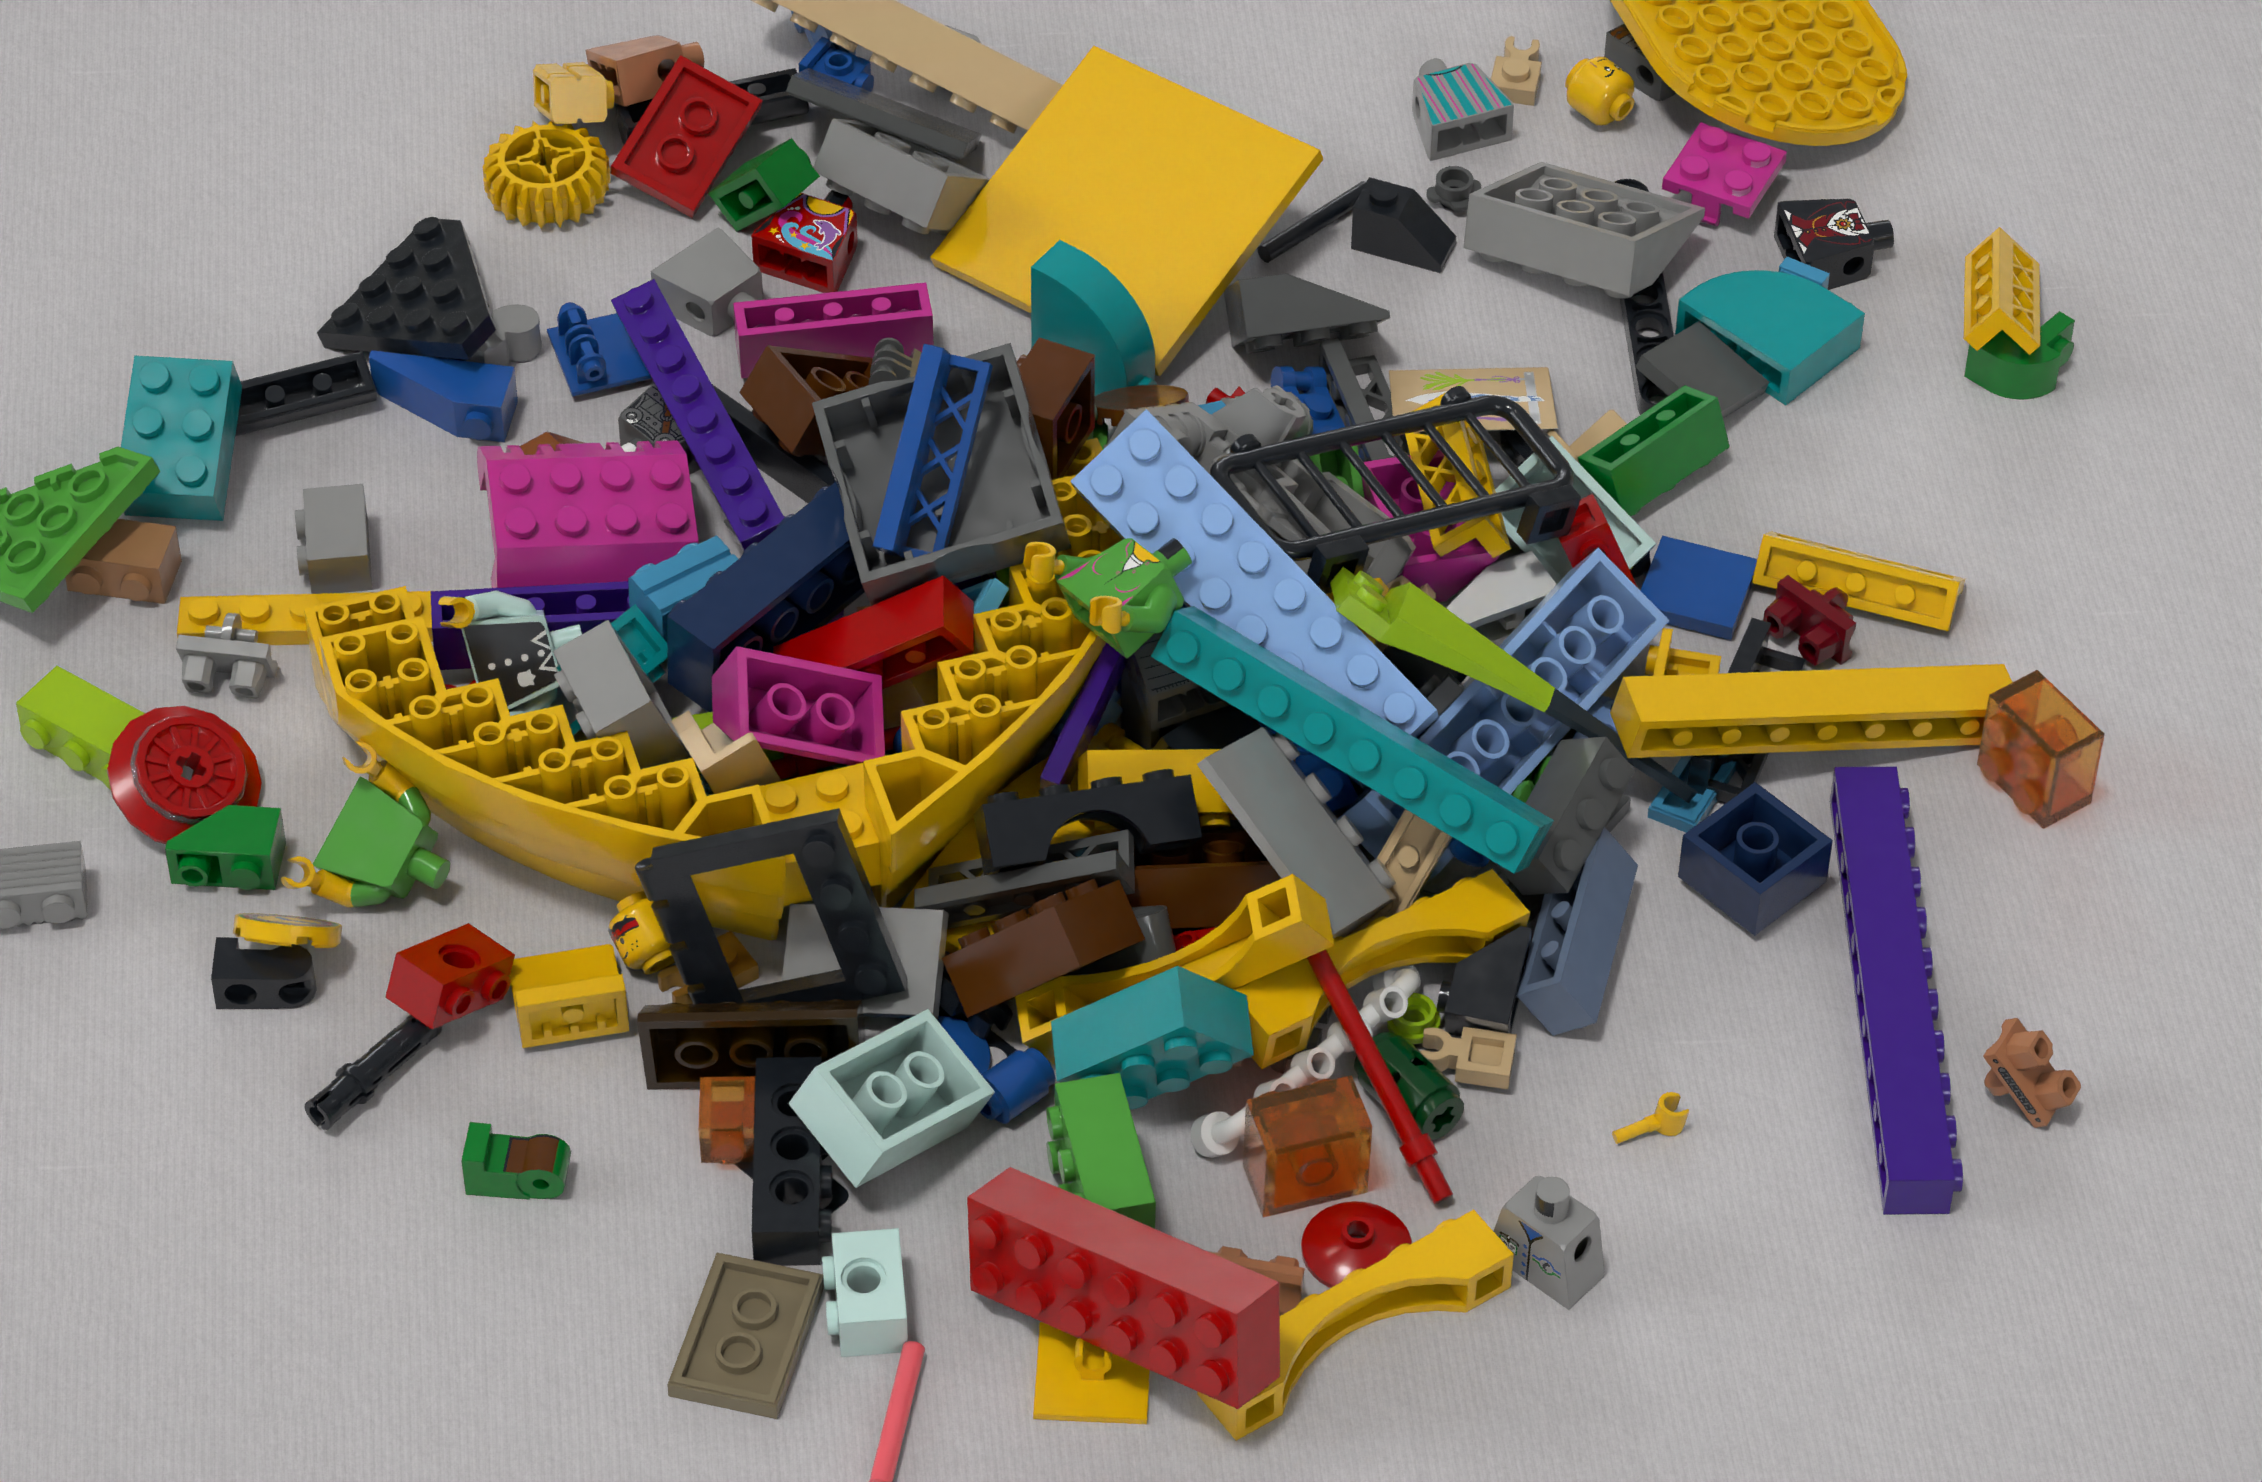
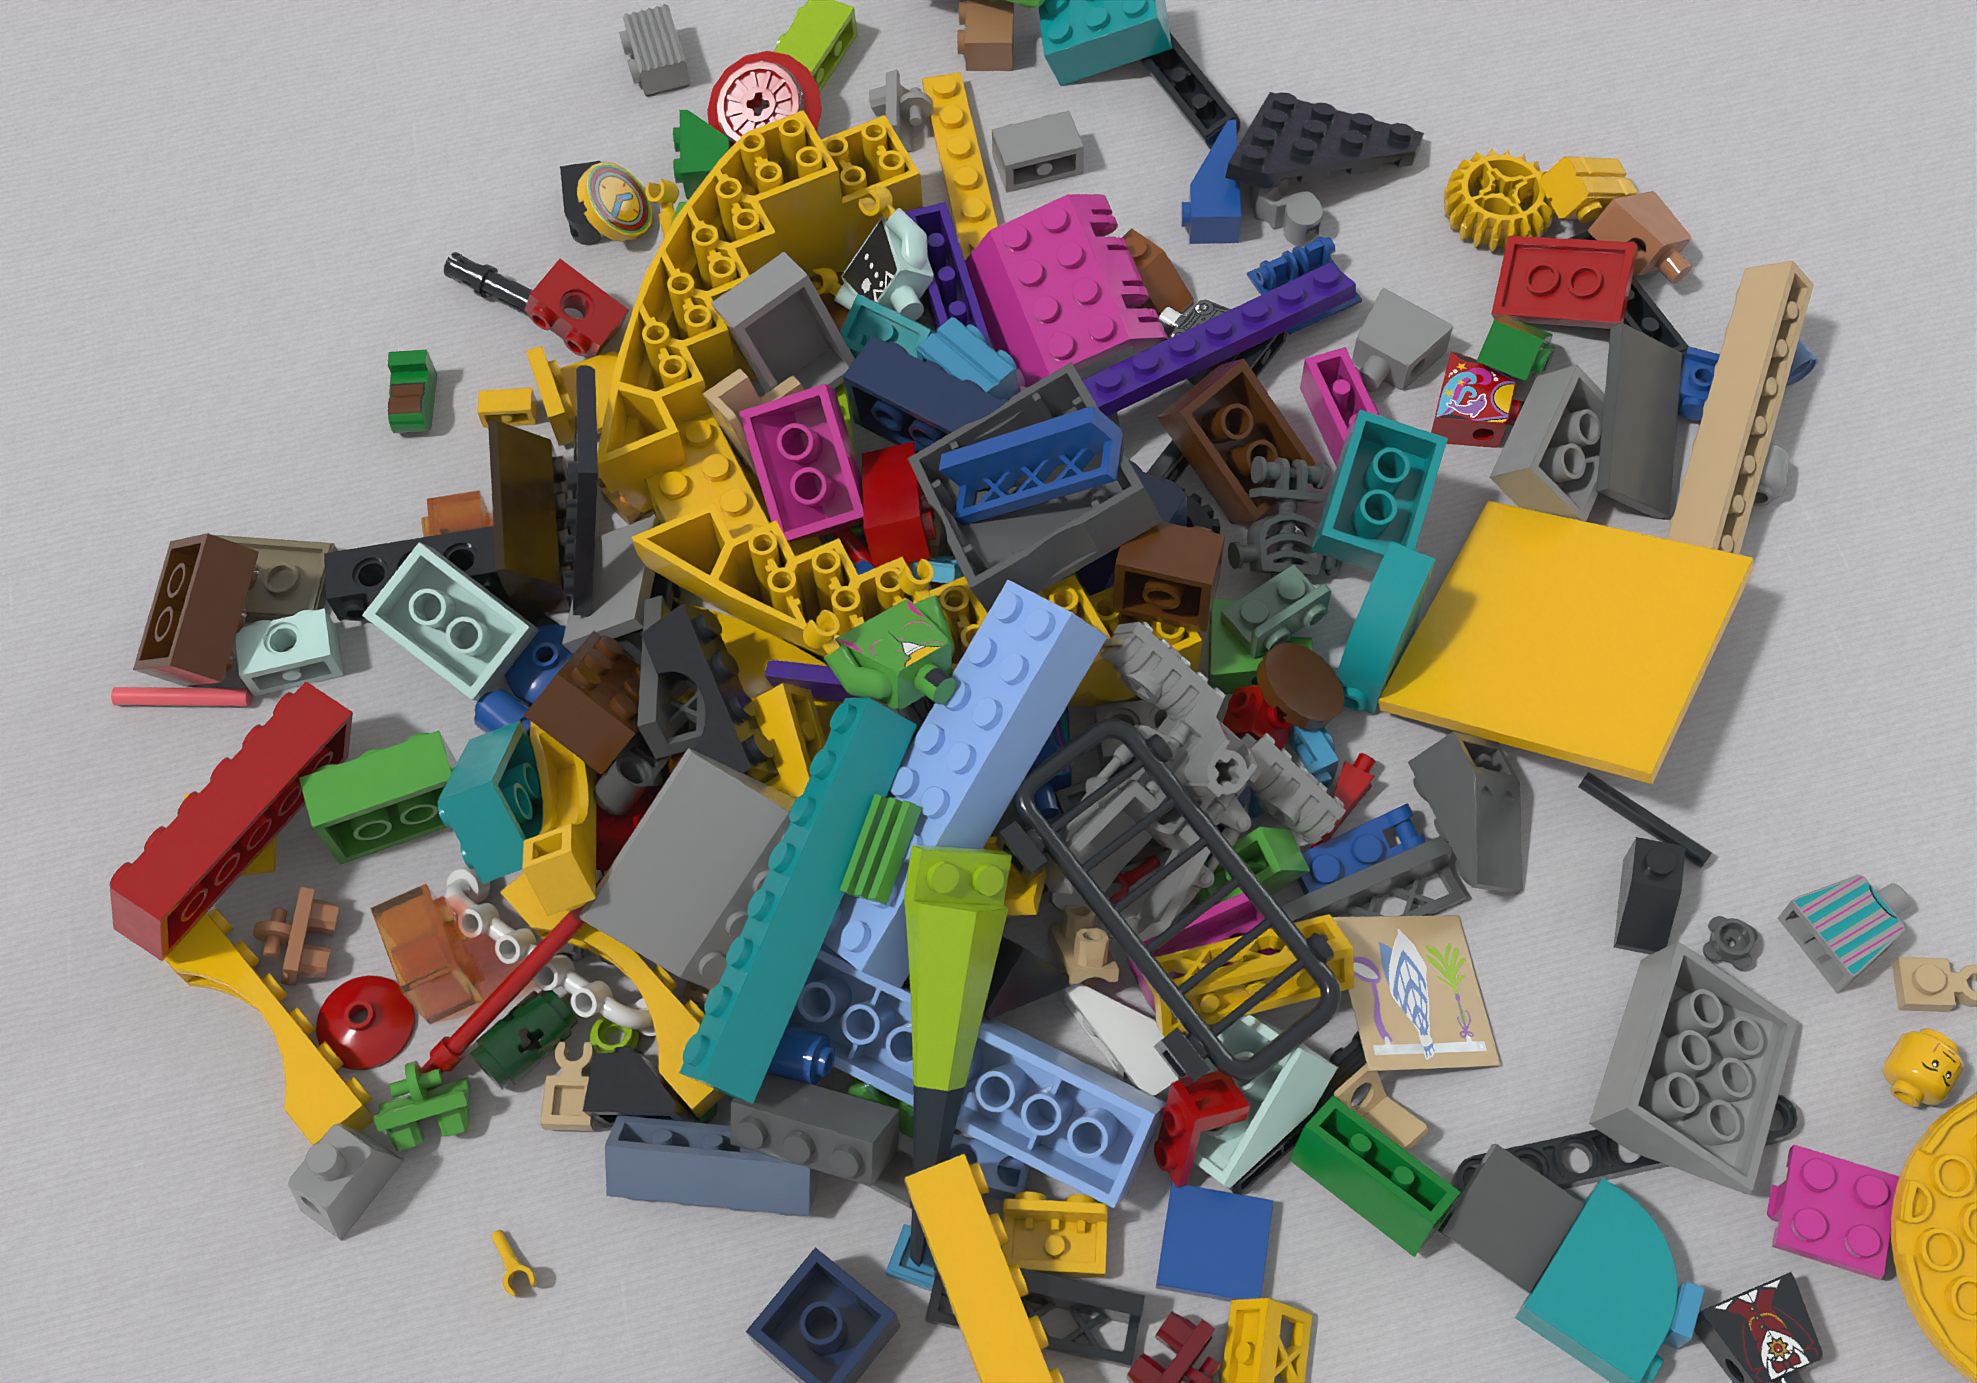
camera: 85 degrees right, 15 degrees up
(559, 1073) = (508, 406): none -> yellow piece
(816, 1341) = (197, 610): none -> reddish brown brick
(947, 287) = (1378, 490): none -> teal brick
(1286, 628) = (880, 849): none -> bright green tile
(1474, 1170) = (402, 1115): none -> bright green hips

